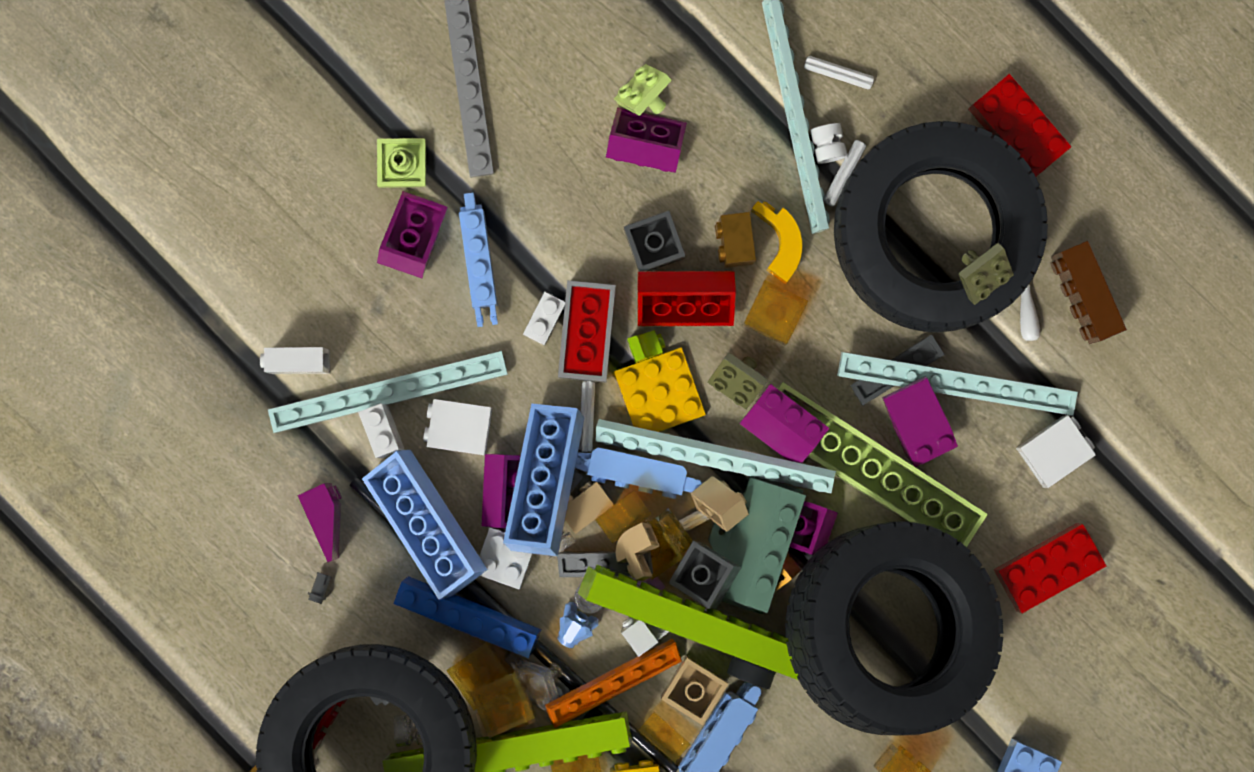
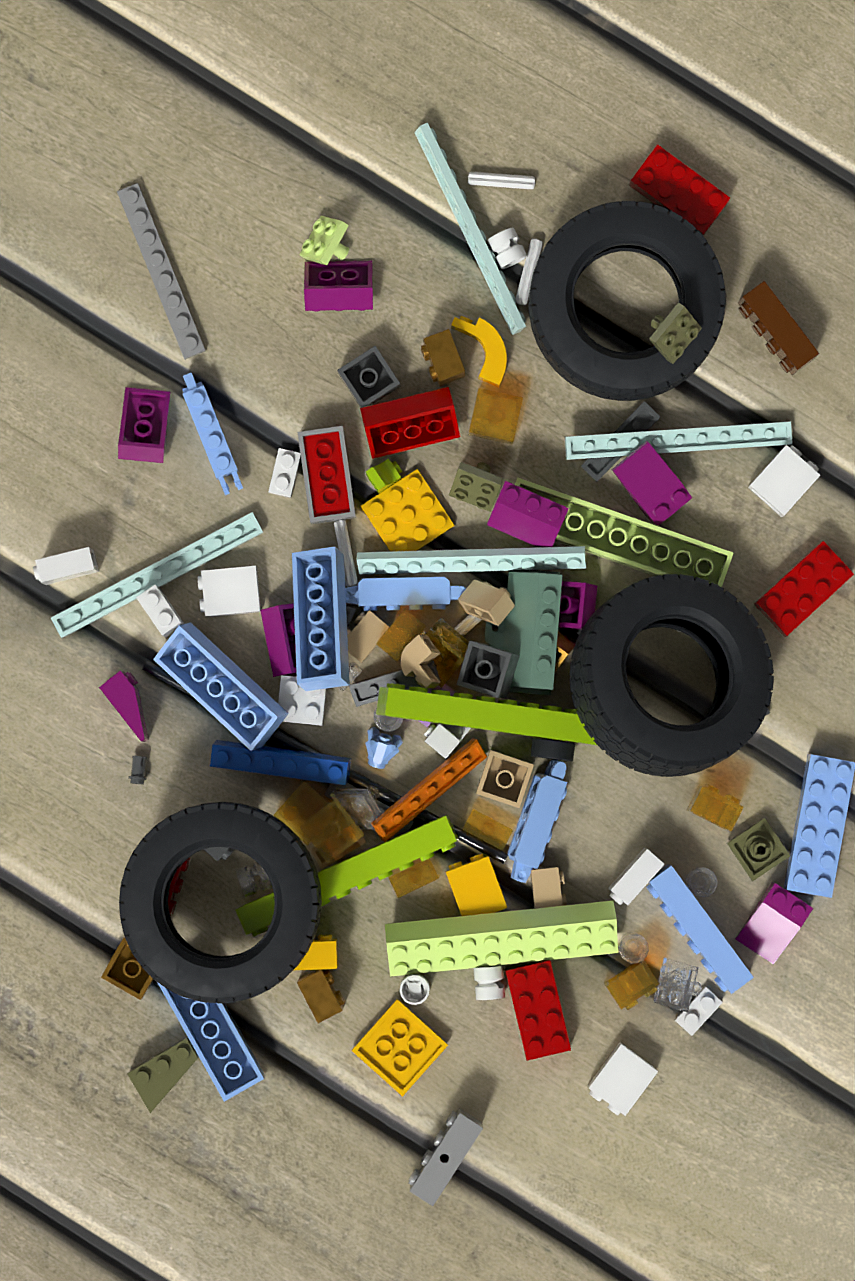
camera: 10 degrees left, 0 degrees up
(401, 163) = (118, 361): yellowish green plate -> none
(1028, 317) = (731, 366): white piece -> none

